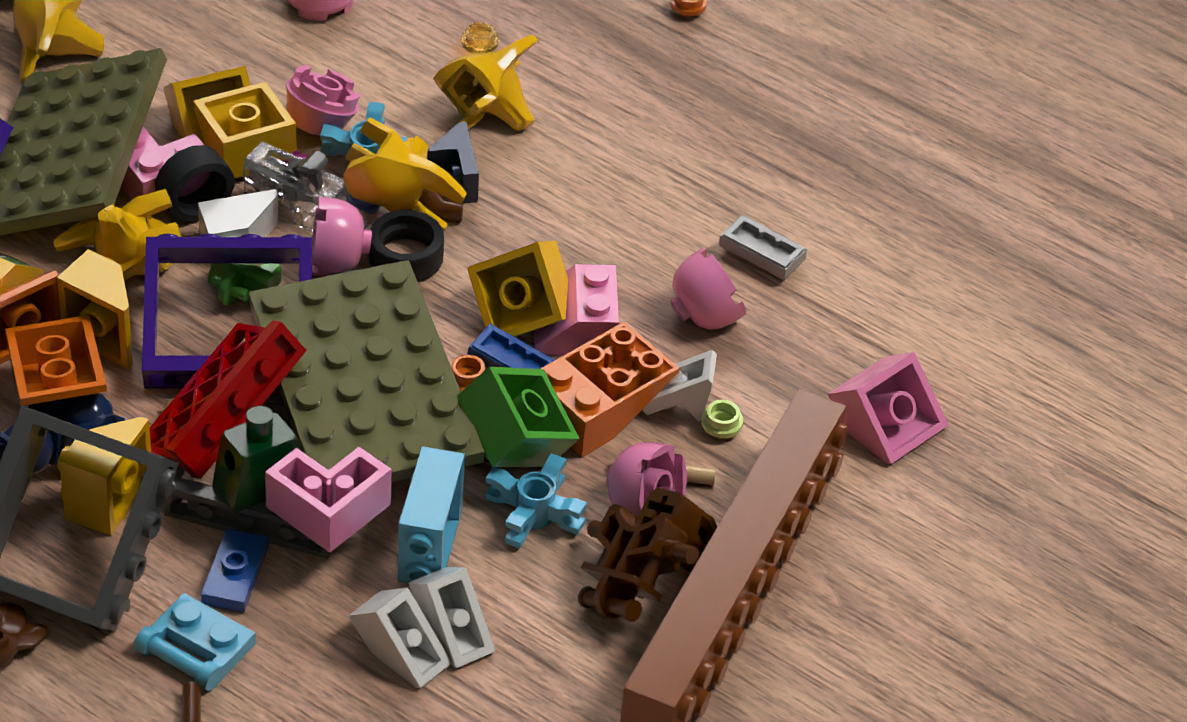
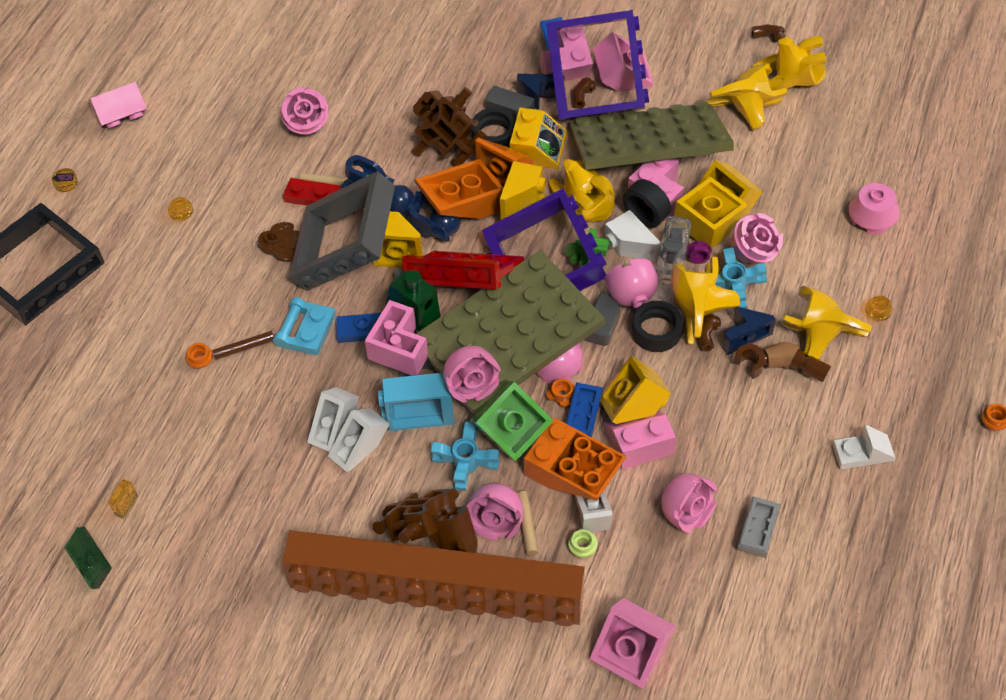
camera: 80 degrees right, 10 degrees up
(441, 413) = (471, 373): none -> bright pink cylinder
(515, 143) = (781, 355): none -> reddish brown piece
(686, 125) = (863, 450): none -> white slope

